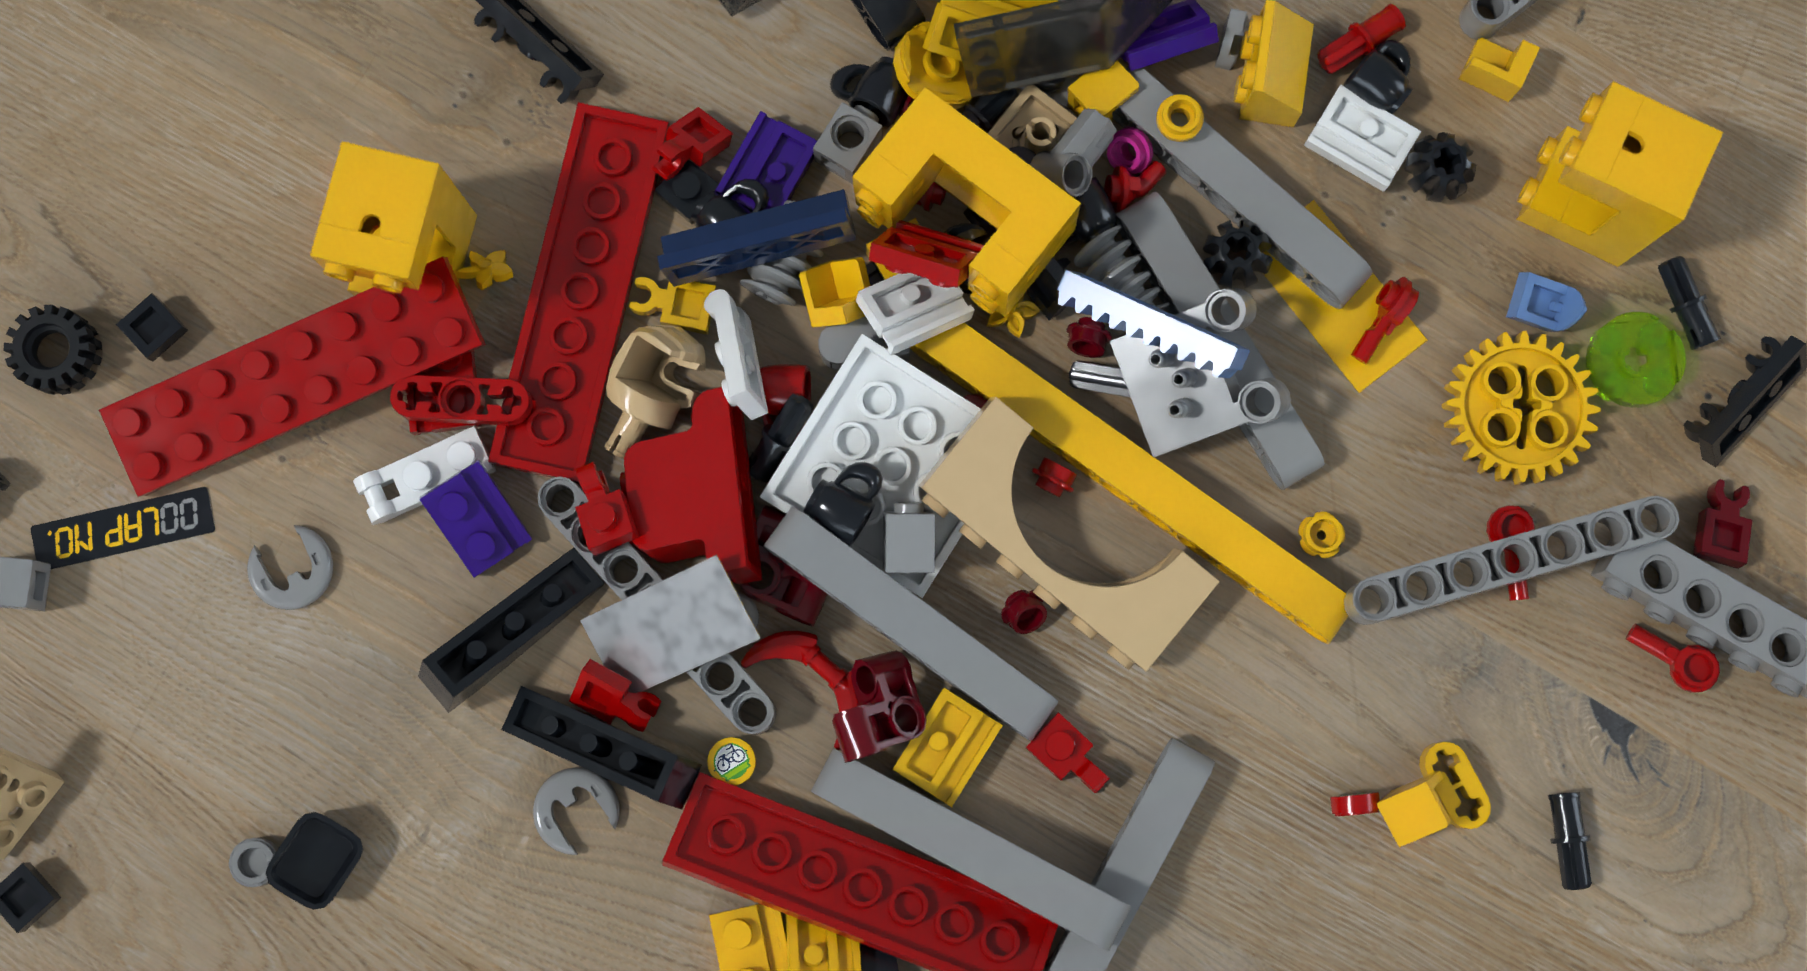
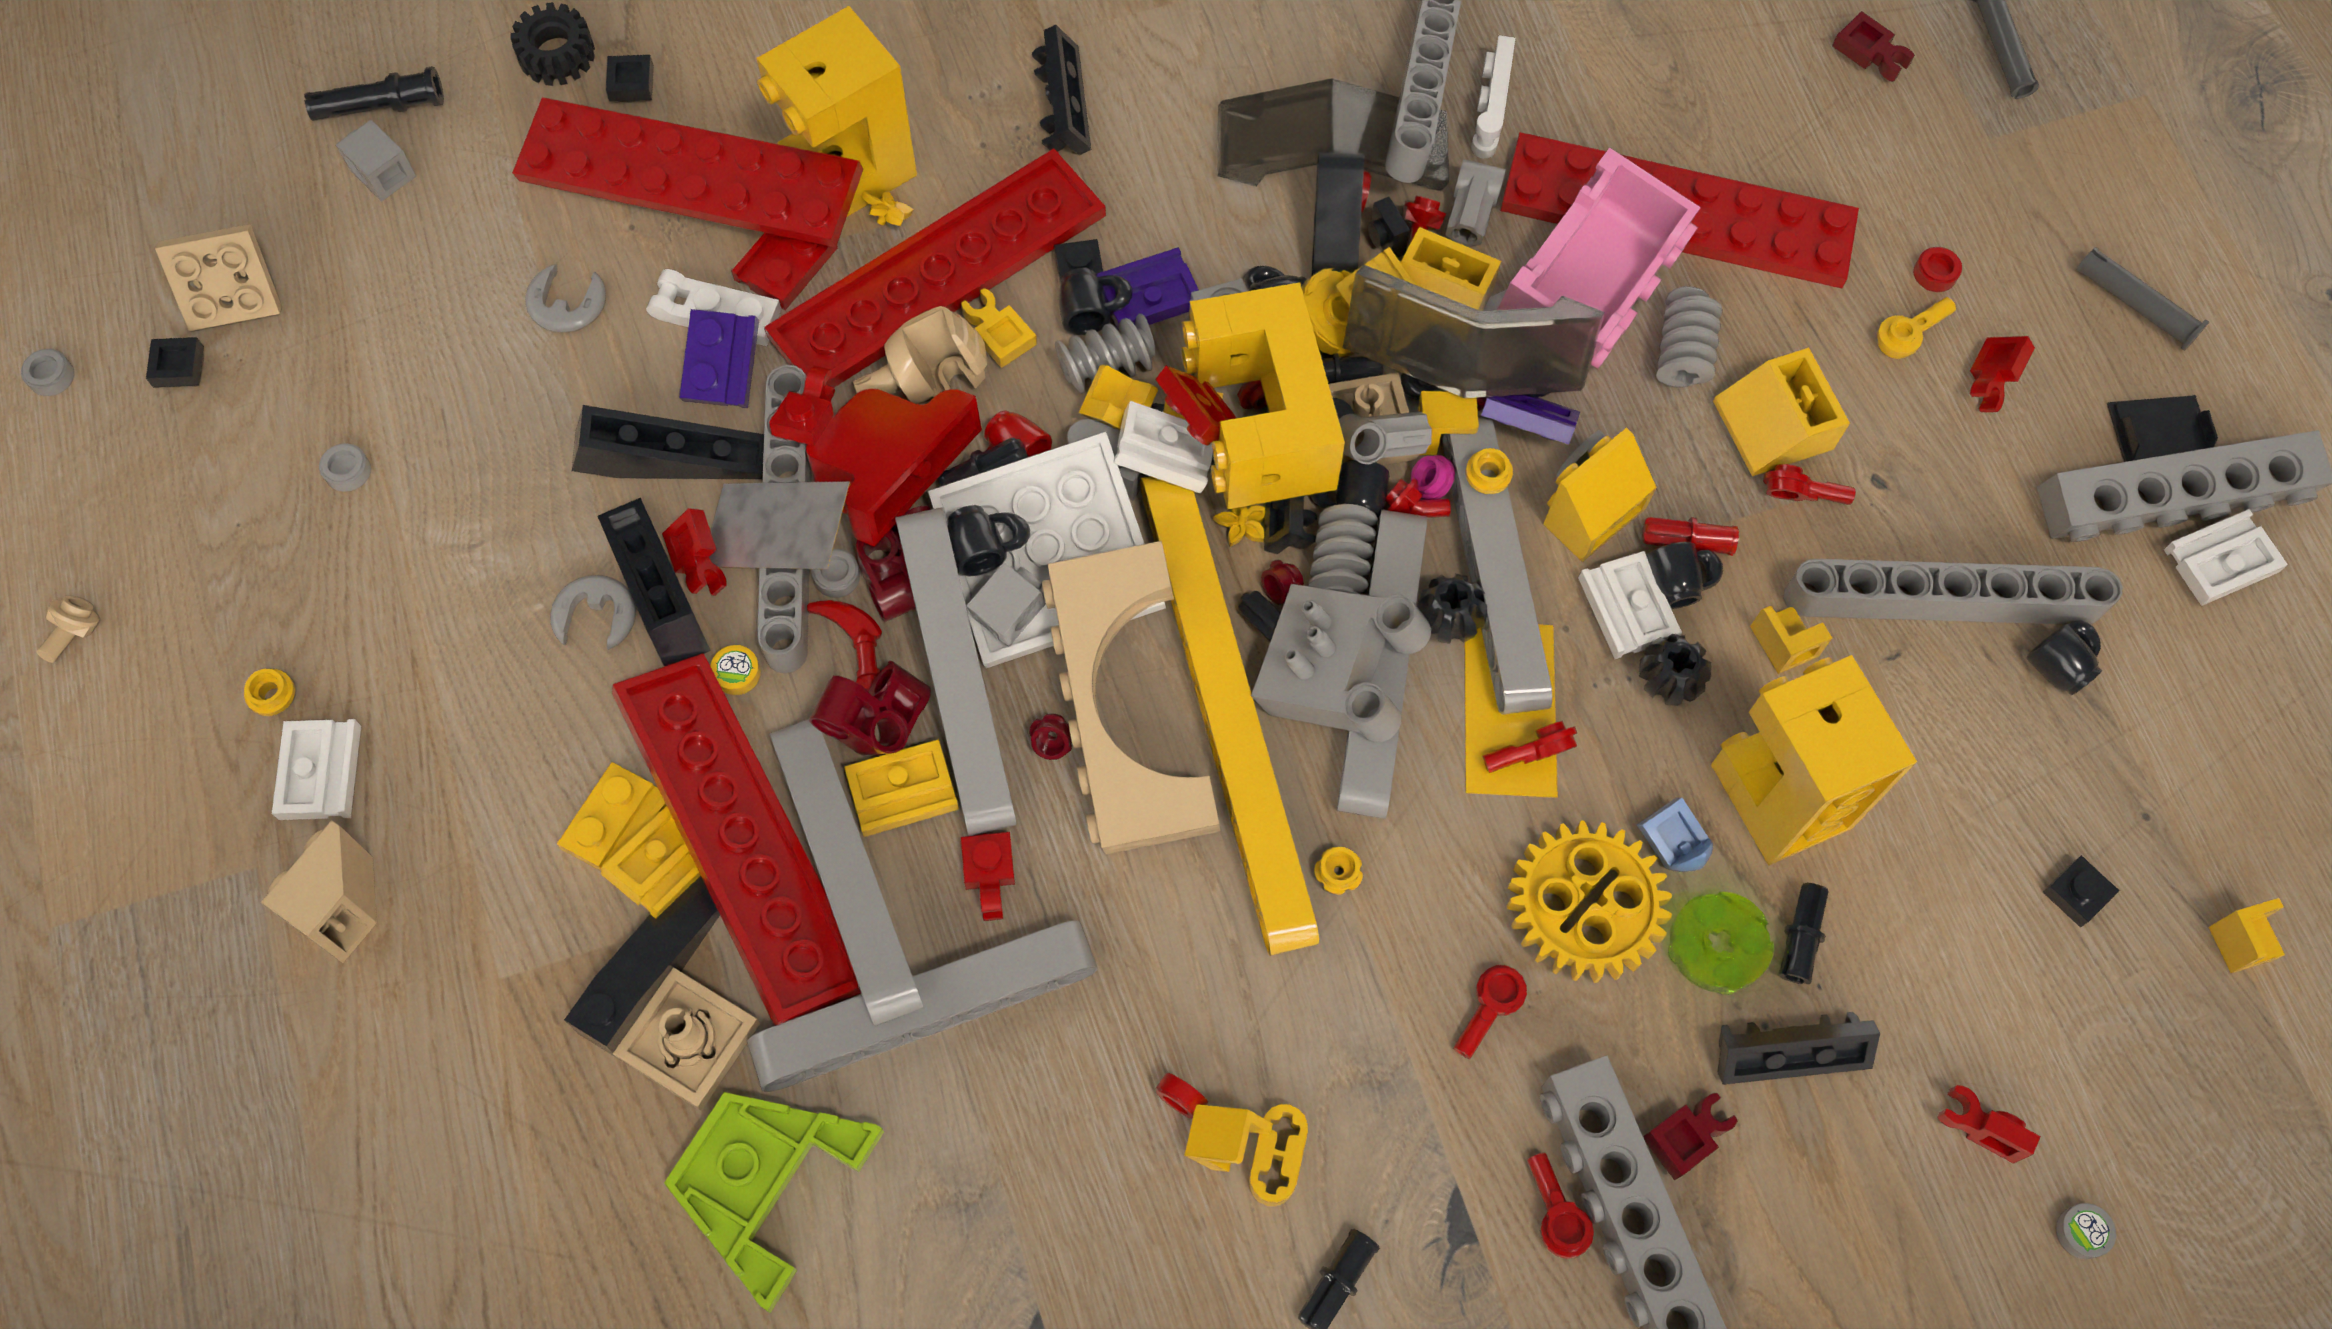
camera: 40 degrees right, 15 degrees down
(123, 528) = (485, 190): black sticker -> none
(314, 860) = (380, 488): black piece -> none
(427, 386) = (789, 288): red beam -> none
(694, 138) = (1114, 229): red plate -> none
(737, 354) = (1004, 385): white plate -> none
(757, 238) = (1089, 314): dark blue fence -> none
(1054, 477) = (1164, 661): red plate -> none
(1151, 324) = (1328, 583): gear -> none
(1533, 557) = (1497, 990): light grey beam -> none

